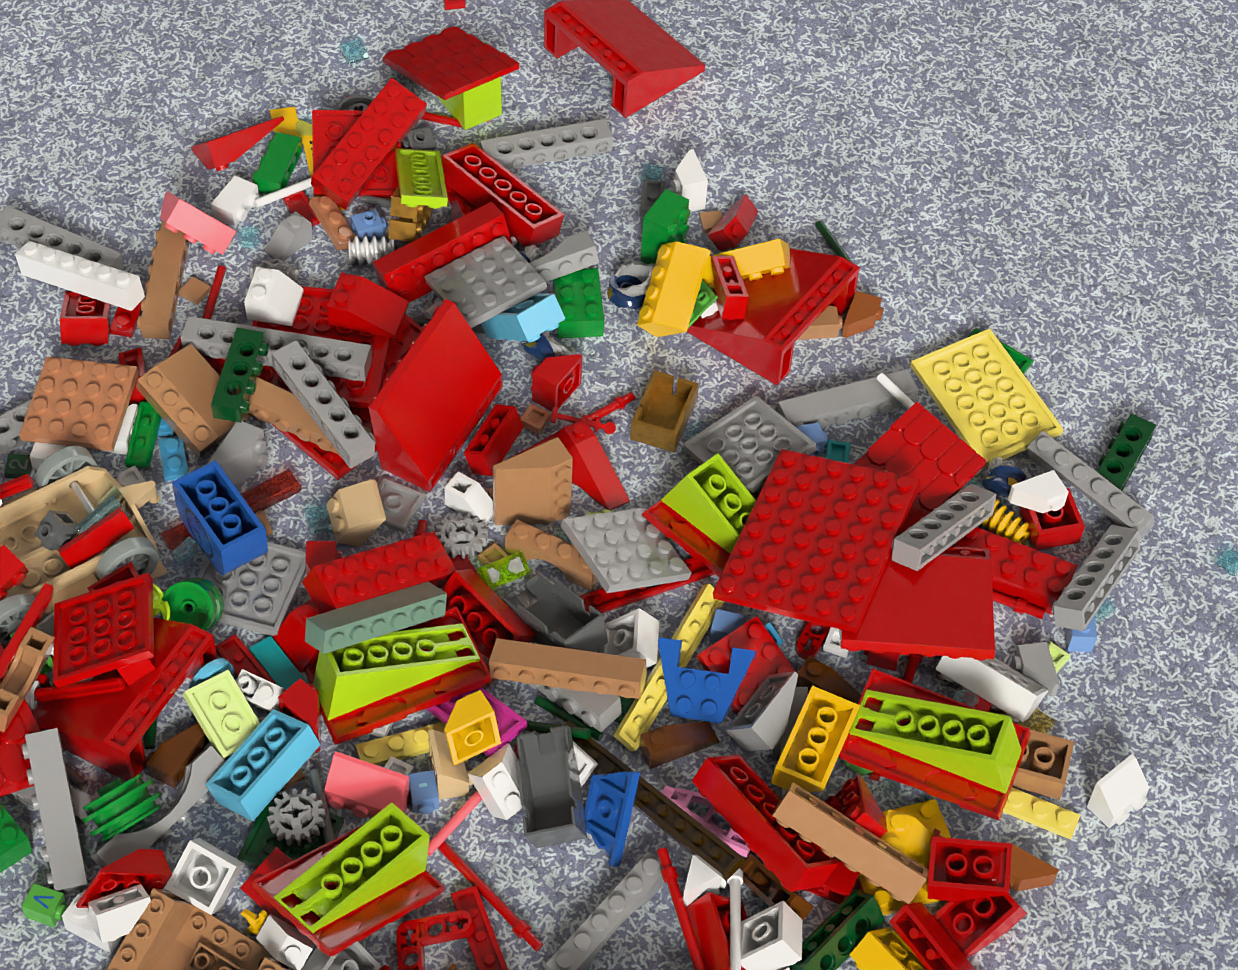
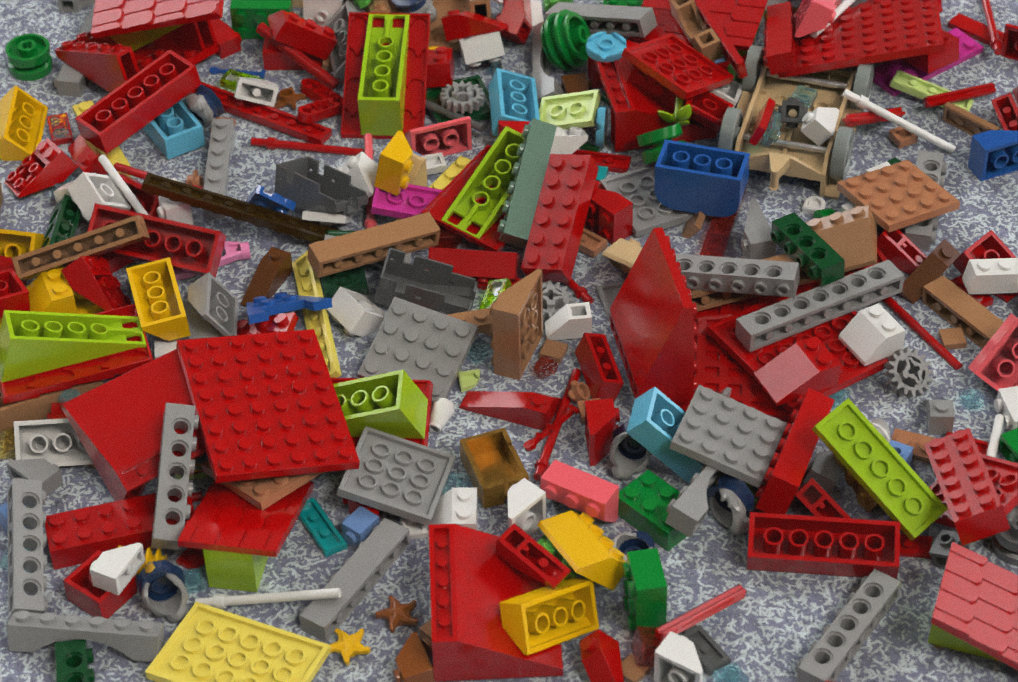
camera: 145 degrees right, 10 degrees down
(20, 547) = (805, 94): none -> clear light blue plate
(54, 496) = (820, 124): none -> white slope
(126, 720) = (605, 46): none -> medium azure tile
(132, 338) = (930, 269): none -> reddish brown slope
(194, 888) = (468, 24): none -> red slope
(528, 438) = (579, 391): none -> nougat plate
(616, 214) = (701, 612): none -> axle
(629, 337) = (581, 491): none -> coral slope
(644, 924) = (195, 179): none -> nougat plate
(652, 495) = (440, 414): none -> white cone
(684, 353) = (526, 506): none -> white slope
(697, 217) = (644, 646): none -> clear red brick
(724, 395) = (457, 507): none -> white slope
(837, 360) = (398, 613): none -> dark orange animal
(893, 361) = (349, 645): none -> yellow animal

